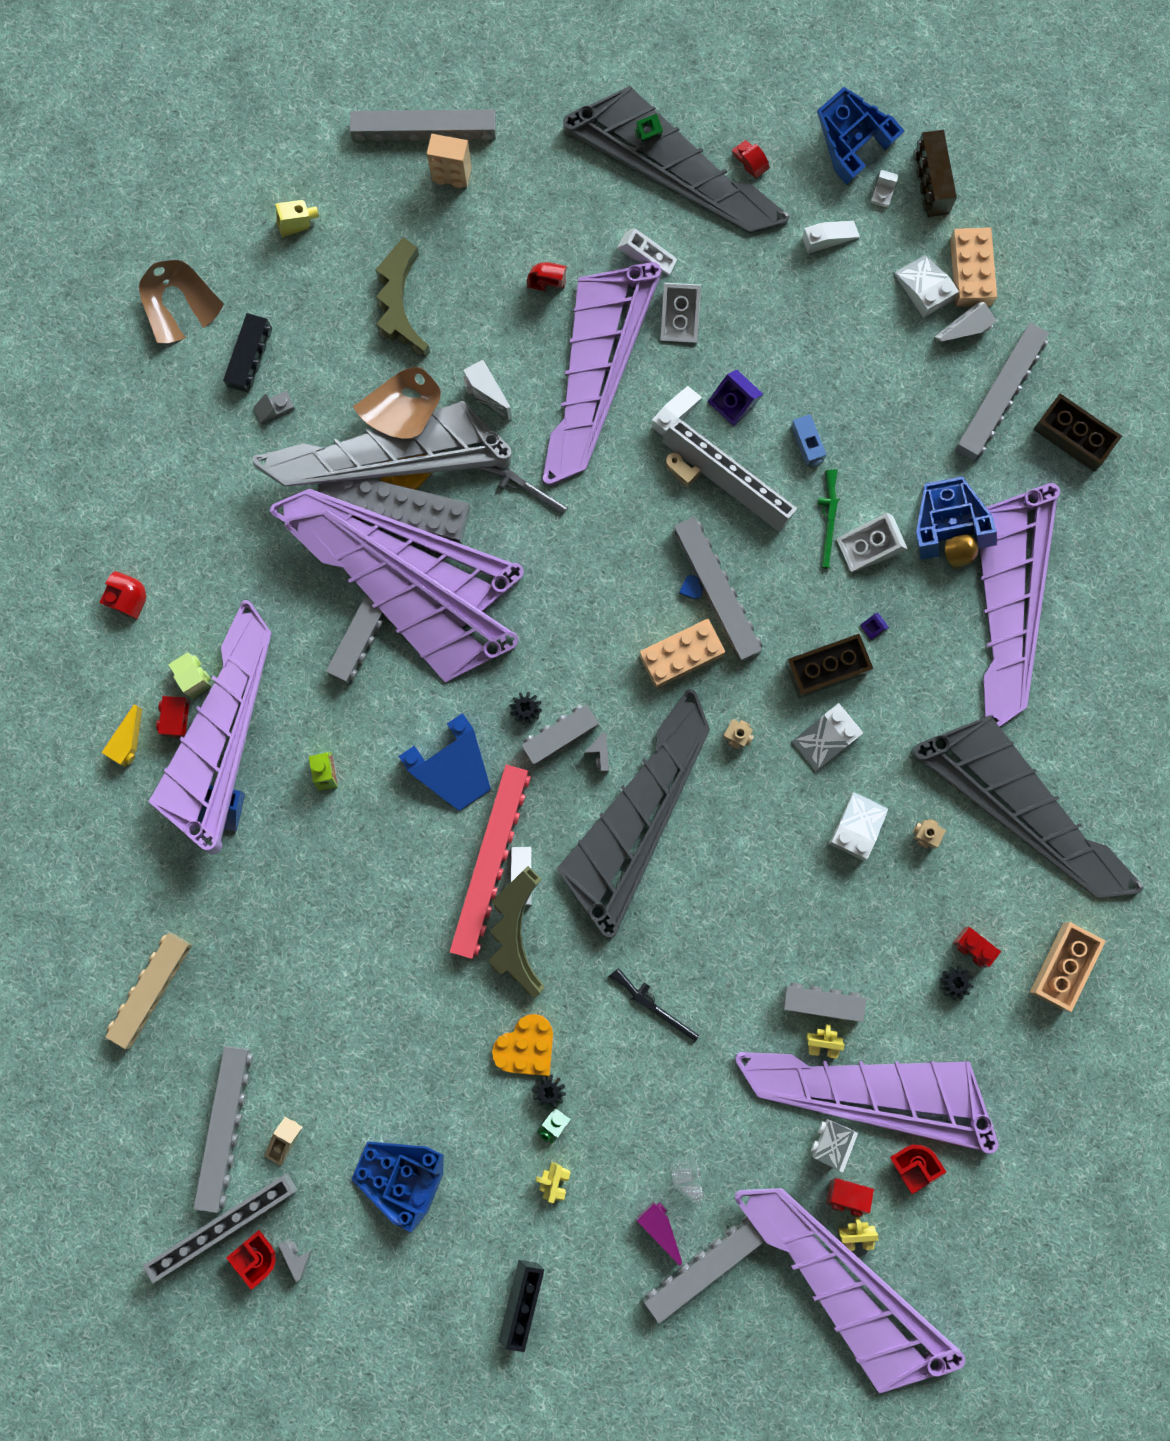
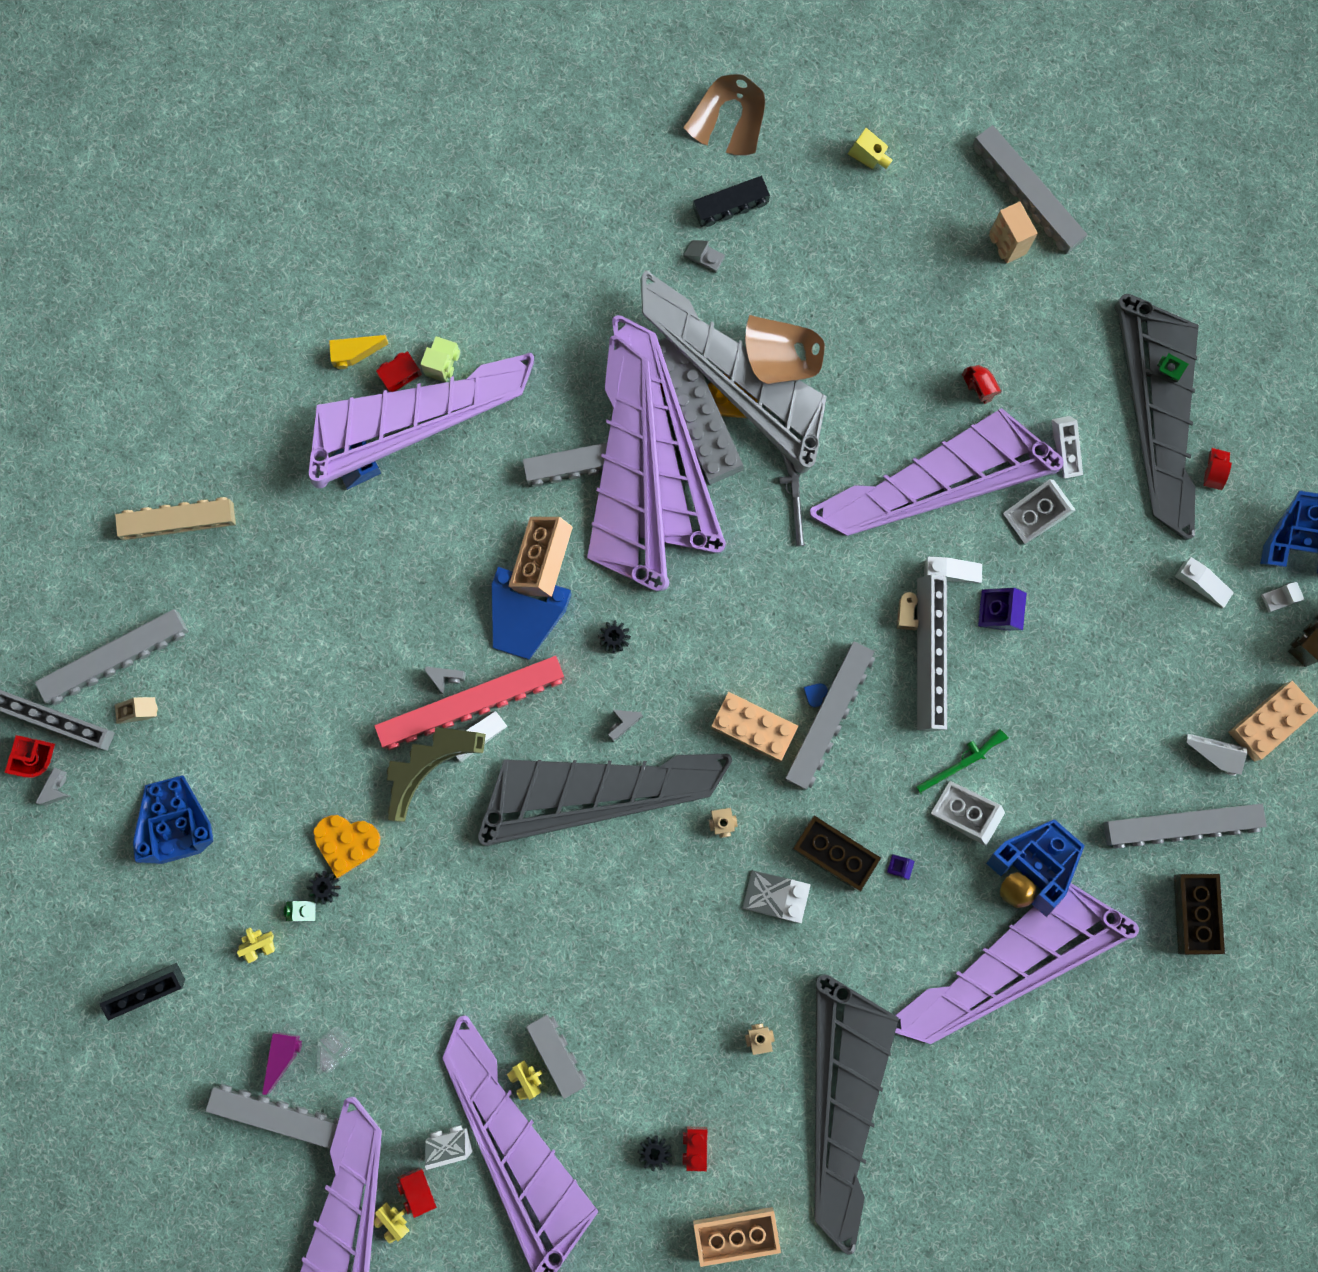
camera: 50 degrees right, 0 degrees up
(124, 594) = (466, 260): red brick -> none
(323, 771) = (443, 518): lime torso -> none
(393, 274) = (885, 262): olive arch -> none
(416, 715) = (540, 556): none -> light nougat brick
(448, 870) = (440, 675): none -> light grey slope
(484, 388) = (849, 400): white slope -> none
(560, 735) = (612, 680): light grey brick -> none
(638, 995) = (452, 902): black piece -> none
(808, 440) = (1013, 696): medium blue brick -> none
(859, 827) = (723, 977): white slope -> none
(917, 1167) = (480, 1230): red brick -> none
(927, 285) = (1226, 694): white slope -> none

